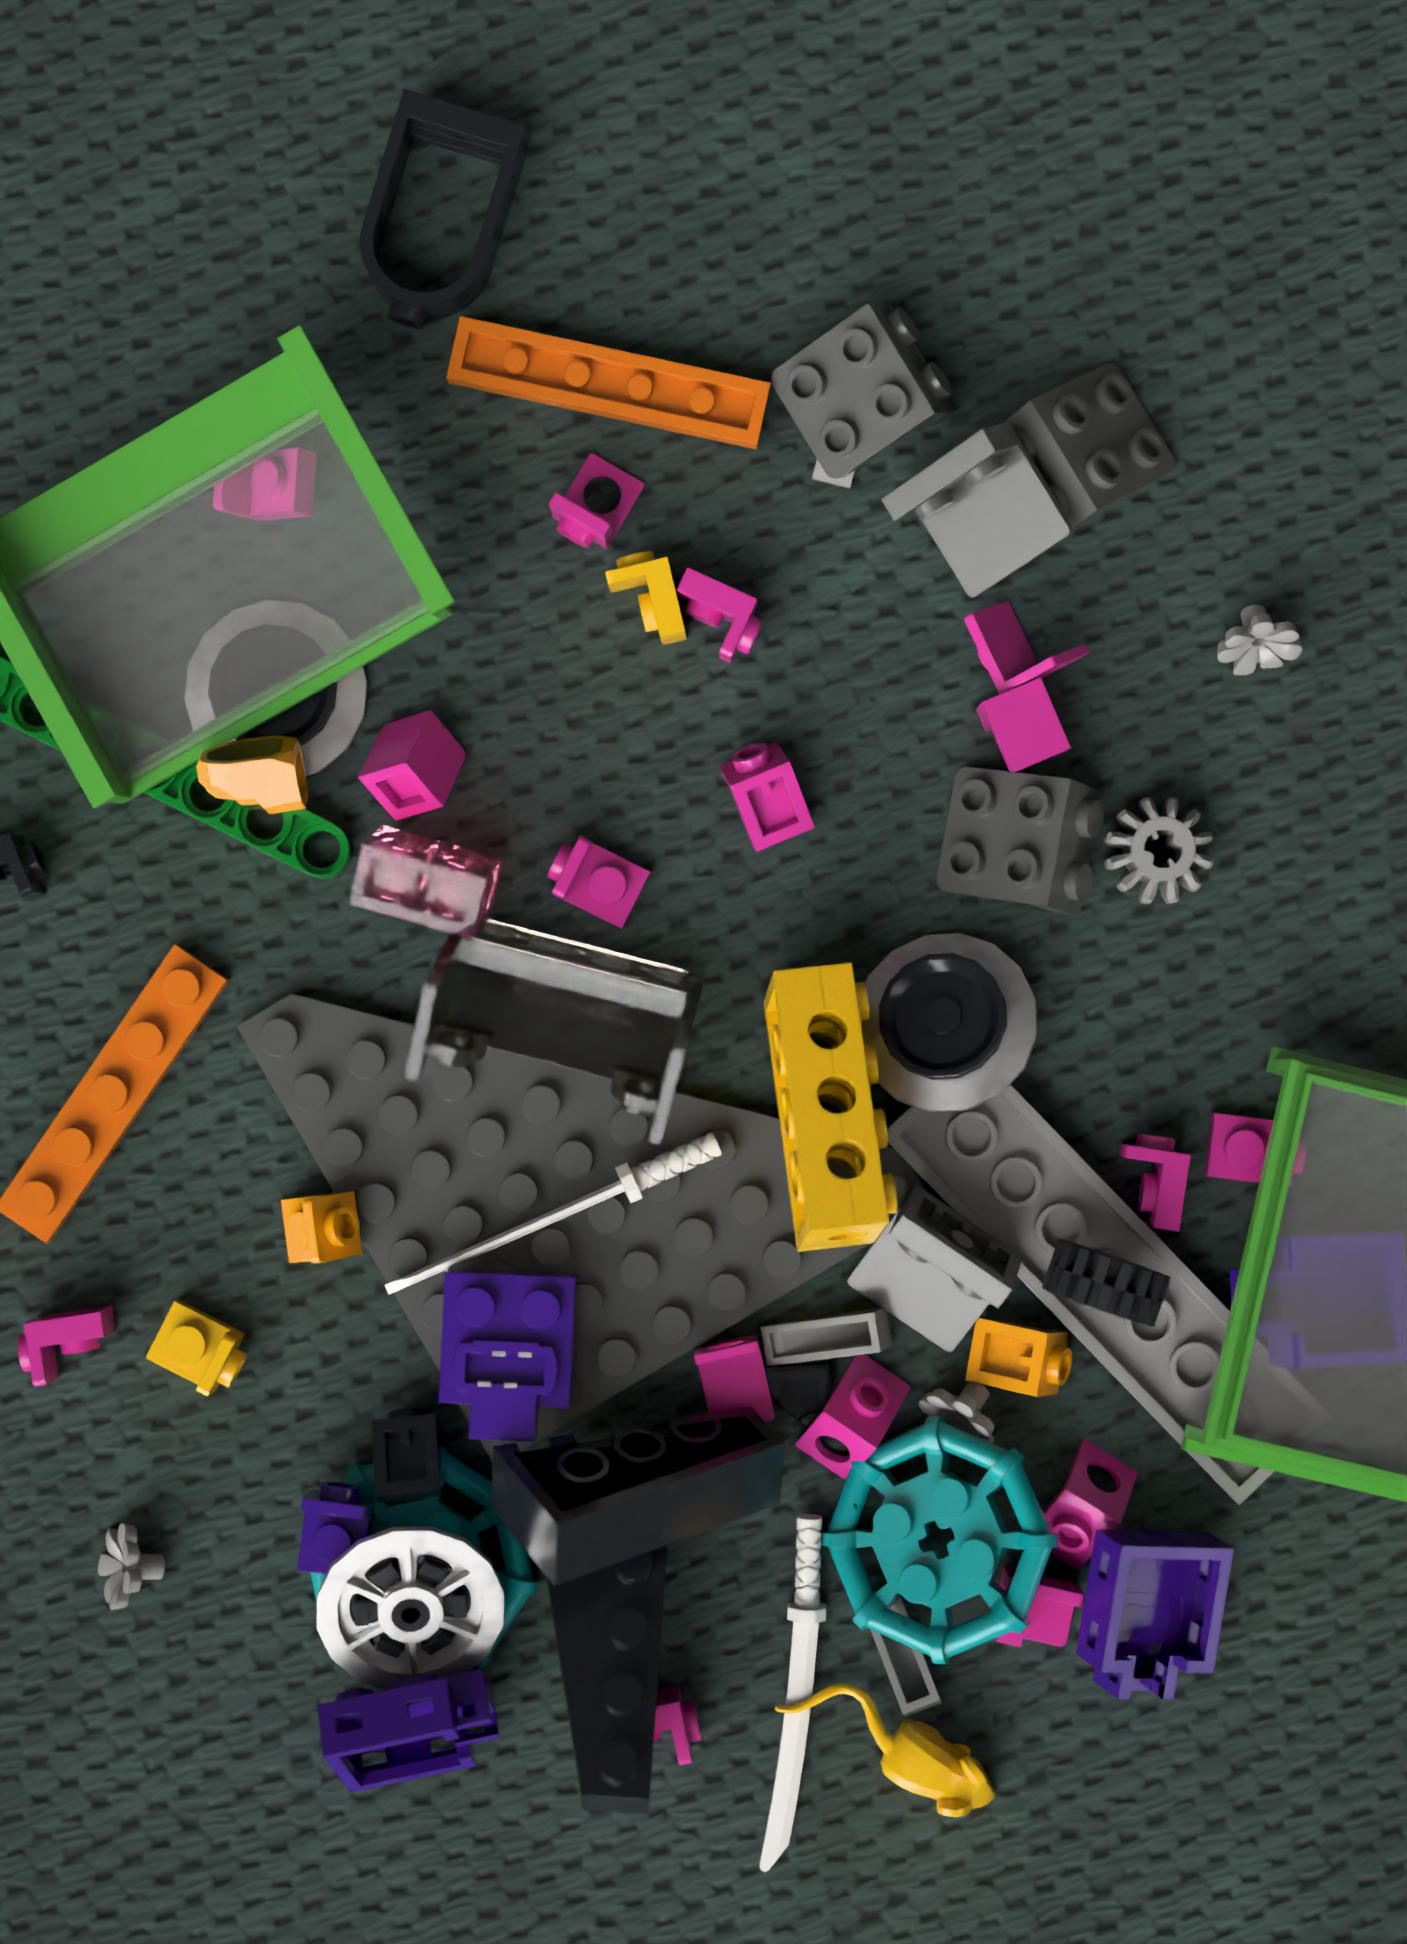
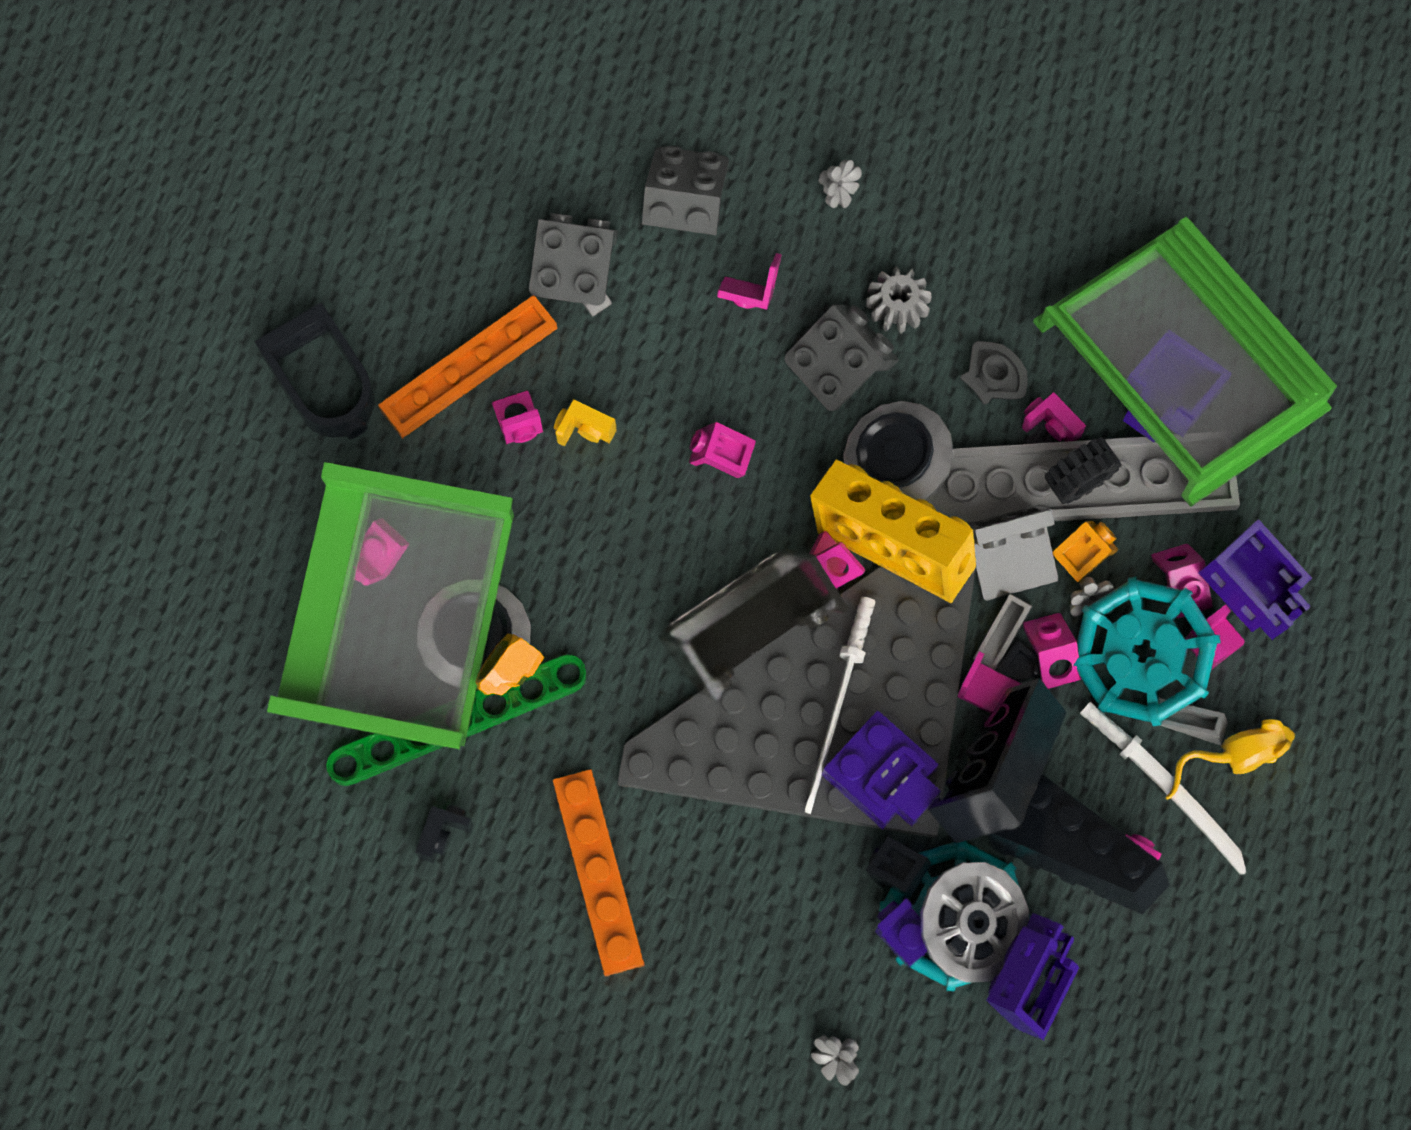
camera: 55 degrees left, 15 degrees down
(73, 1330) = (698, 985): dark pink bracket -> none
(198, 1348) = (759, 932): yellow bracket -> none
(321, 1227) = (750, 820): light orange bracket -> none
(412, 765) = (566, 597): dark pink panel -> none
(426, 881) = (628, 631): clear pink brick -> none
(597, 881) = (695, 559): dark pink bracket -> none
(713, 601) = (613, 397): dark pink bracket -> none
(727, 1053) = (834, 559): none -> dark pink bracket
(984, 507) = (676, 248): bracket -> none
(1024, 725) = (790, 309): dark pink panel -> none
(1163, 1053) = (995, 373): none -> dark grey animal
(1236, 1147) = (1069, 374): dark pink bracket -> none

